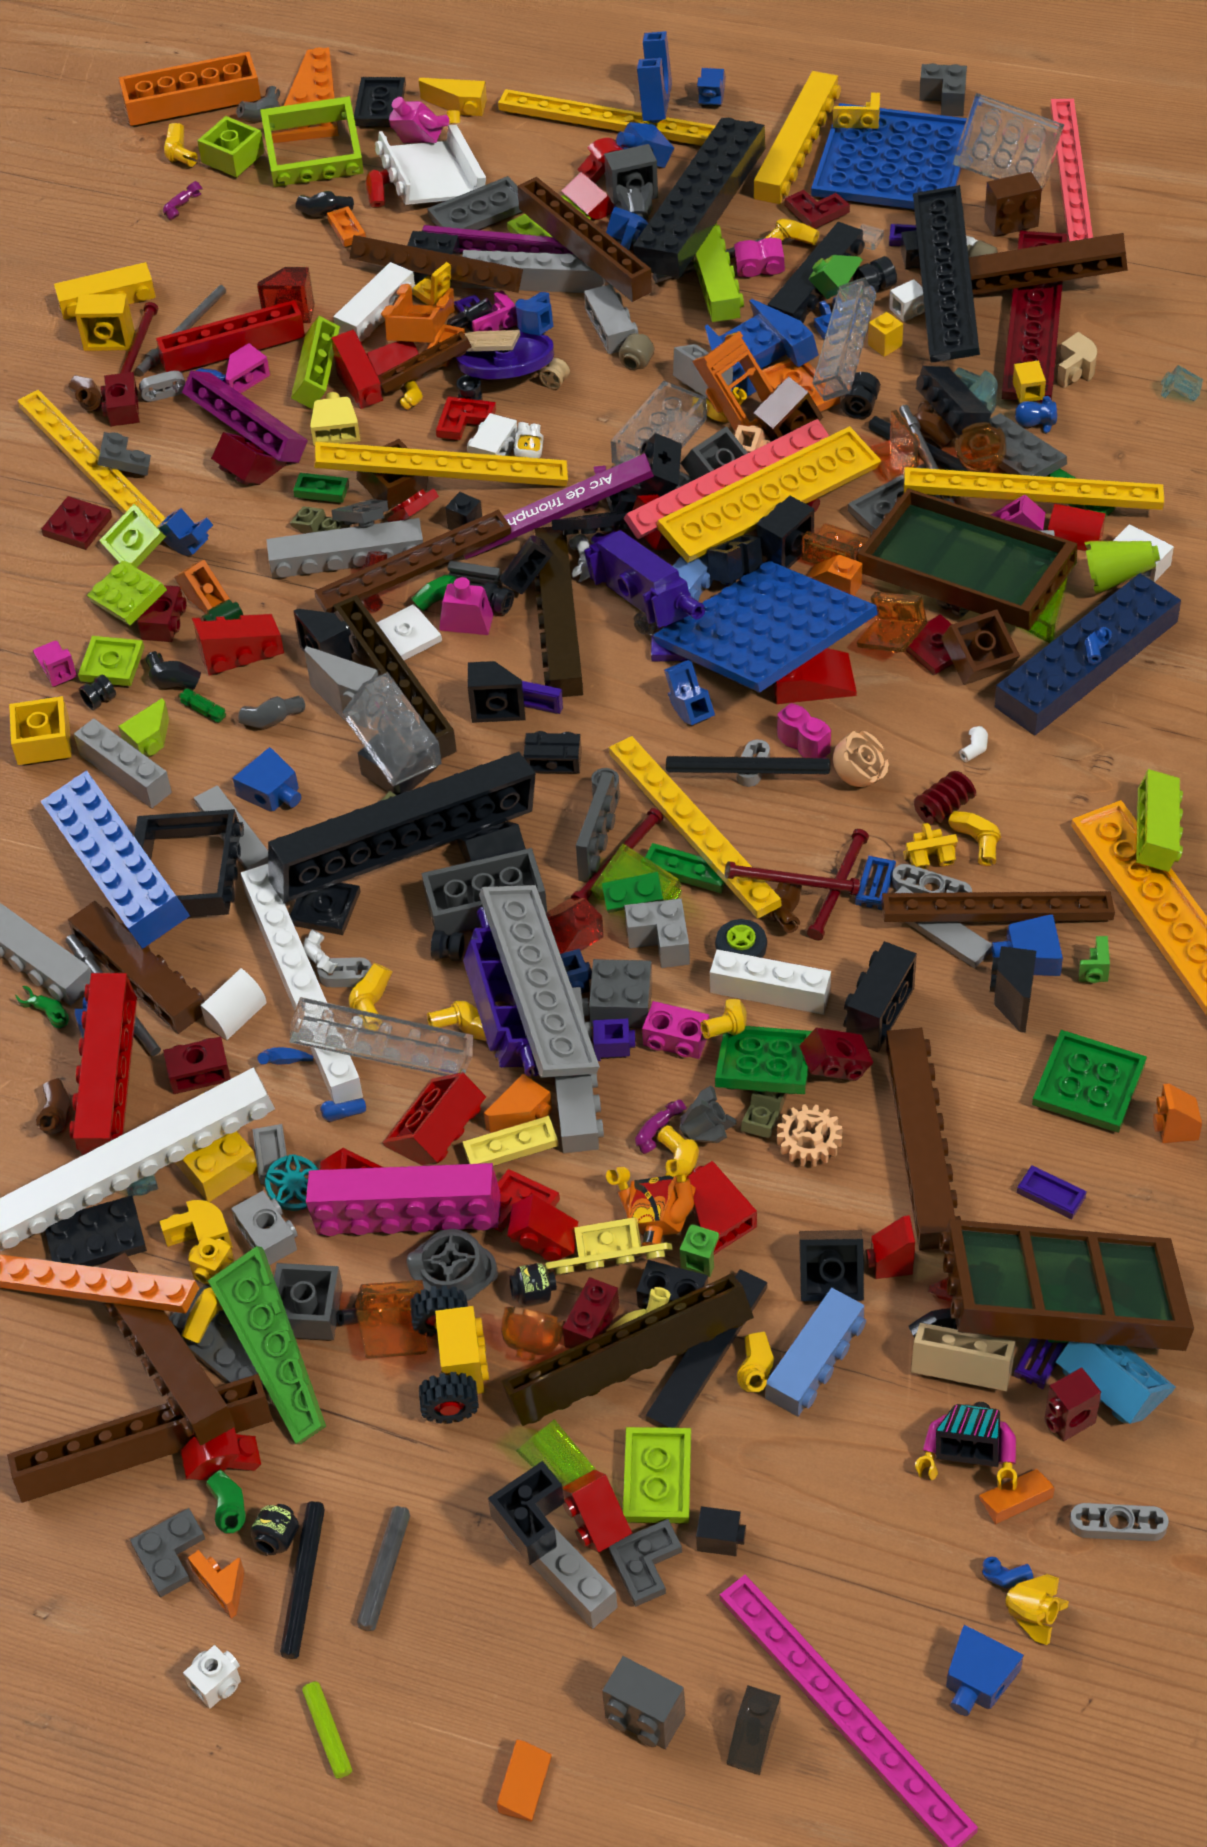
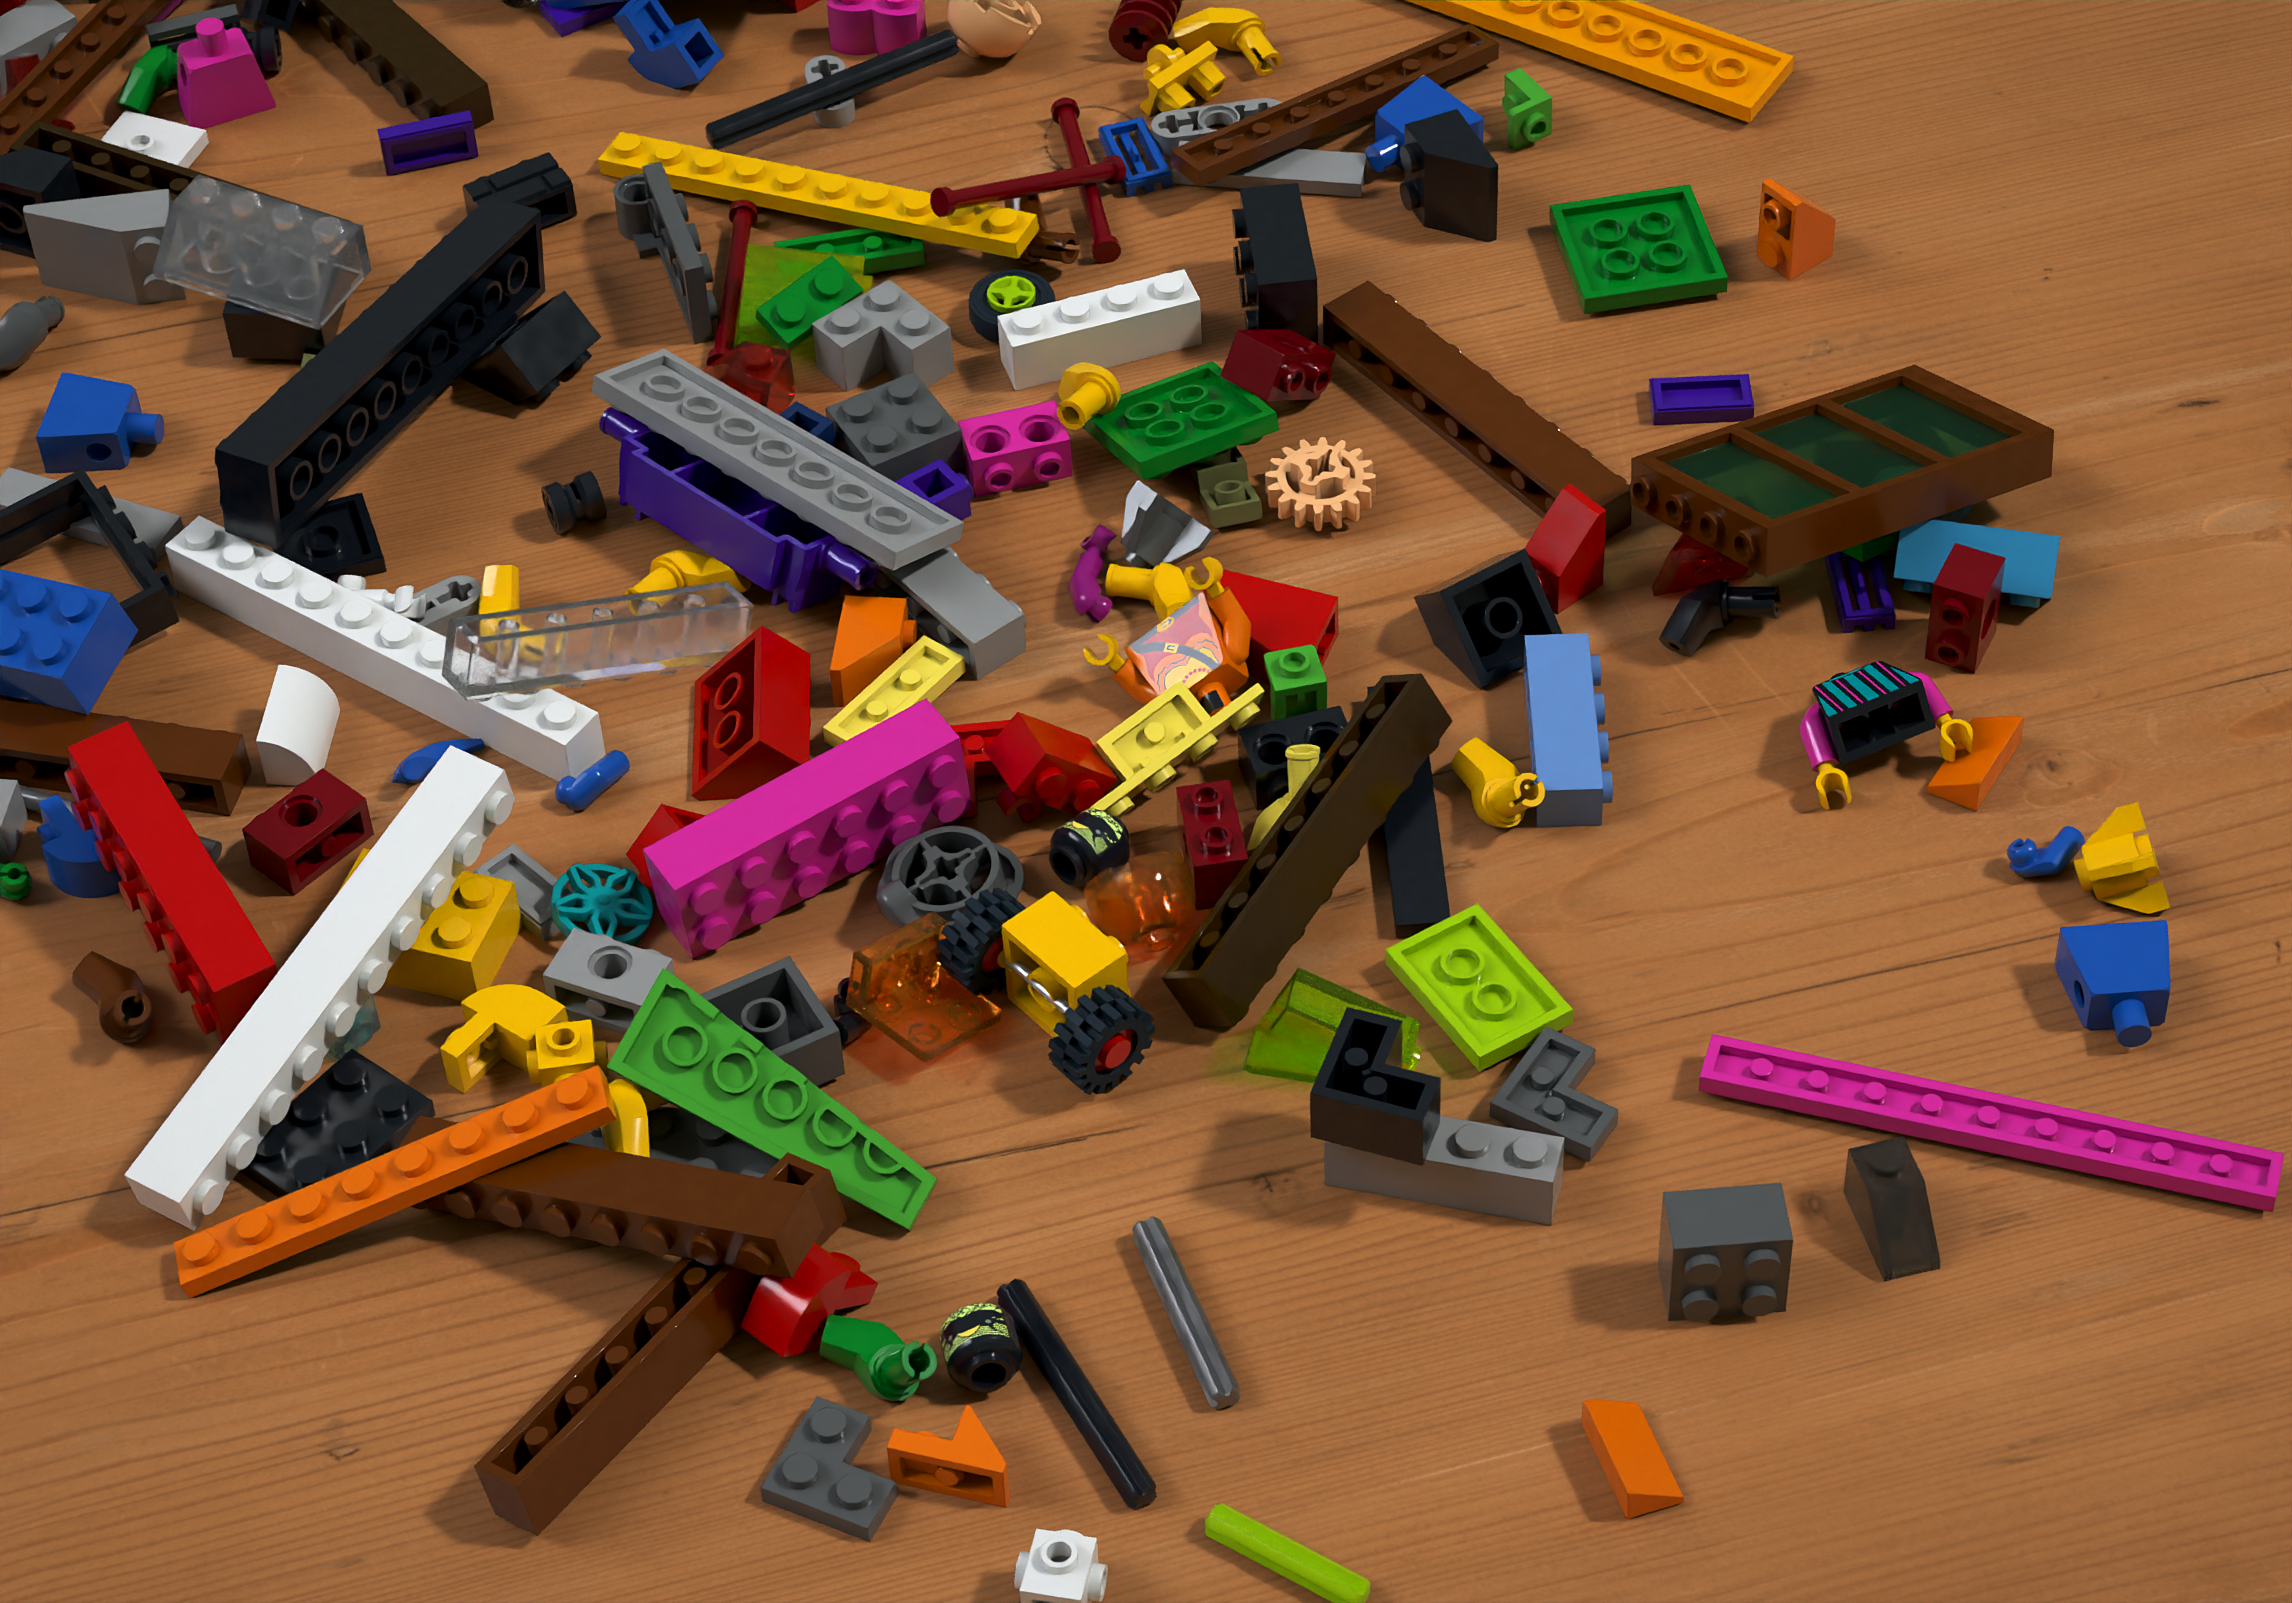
camera: 35 degrees left, 5 degrees down
(455, 890) = (548, 418): dark grey brick -> none
(494, 693) = (368, 157): black slope -> none
(595, 1511) = (1447, 1046): red brick -> none
(720, 1531) = (1628, 1005): black brick -> none
(963, 1356) = (1770, 630): tan brick -> none
(1143, 1533) = (2119, 740): light grey beam -> none

